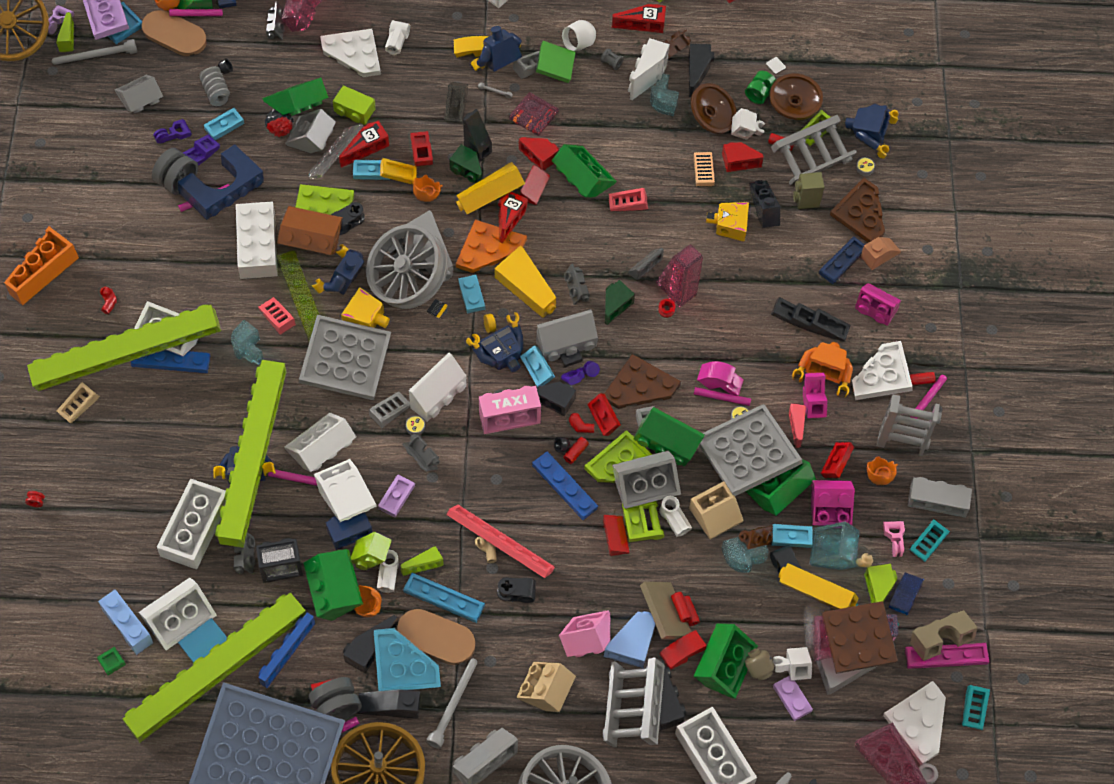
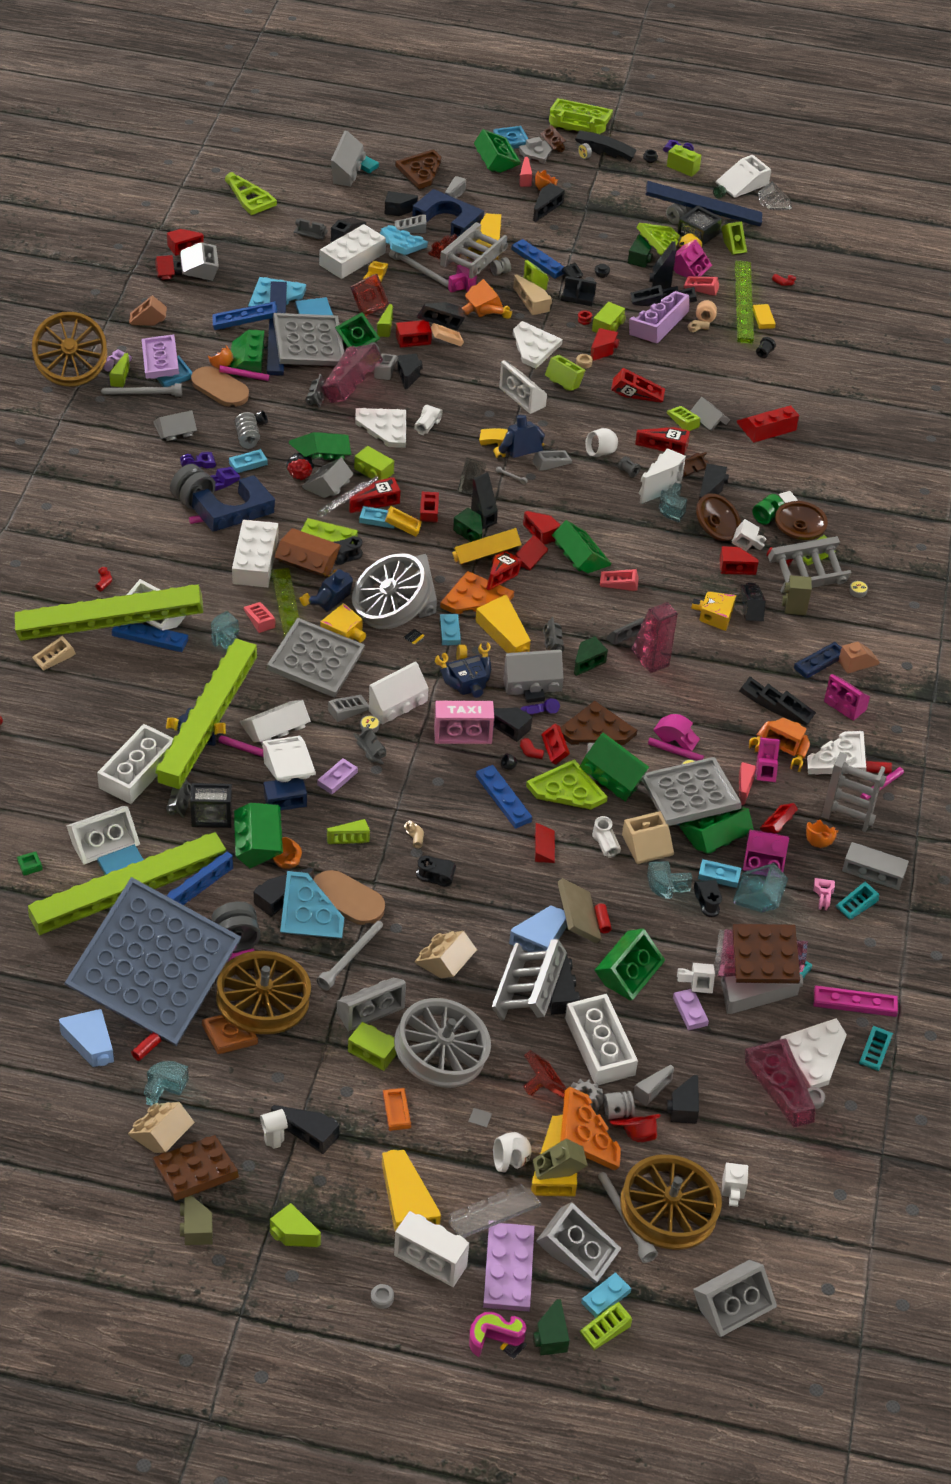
camera: 10 degrees right, 15 degrees down
(41, 266) = (48, 541): orange wedge -> none
(126, 622) = (49, 825): light blue arch -> none
(370, 551) = (301, 811): lime brick -> none
(388, 574) = (313, 836): white piece -> none
(391, 703) = (292, 942): black slope -> none
(426, 189) = (426, 539): orange hair -> none
(444, 597) = (363, 867): dark azure tile -> none
(500, 541) = (431, 829): coral tile -> none
(533, 114) = (544, 498): clear pink tile -> none
(537, 366) = (499, 693): medium azure plate -> none
(555, 61) = (574, 460): bright green tile -> none
(575, 451) = (521, 769): red axle -> none
(586, 634) = (495, 916): bright pink slope -> none
(637, 525) = (567, 836): lime plate -> none
(646, 479) = (584, 799): light grey slope -> none
(666, 302) = (637, 666): red bush -> none
(681, 607) = (595, 911): red axle -> none
(682, 649) = (584, 948): red slope -> none
(704, 169) = (699, 566): light nougat tile -> none
(757, 537) = (683, 863): reddish brown hinge -> none
(759, 664) = (662, 972): dark tan head -> none
(817, 588) = (728, 908): yellow slope -> none
(861, 211) = (845, 621): reddish brown plate -> none
(865, 561) = (788, 903): tan arm -> none
(871, 126) = (871, 554): dark blue torso -> none
(880, 581) = (804, 922): lime slope -> none
(906, 593) = (823, 940): clear blue slope -> none
(955, 627) = (869, 975): dark tan arch -> none

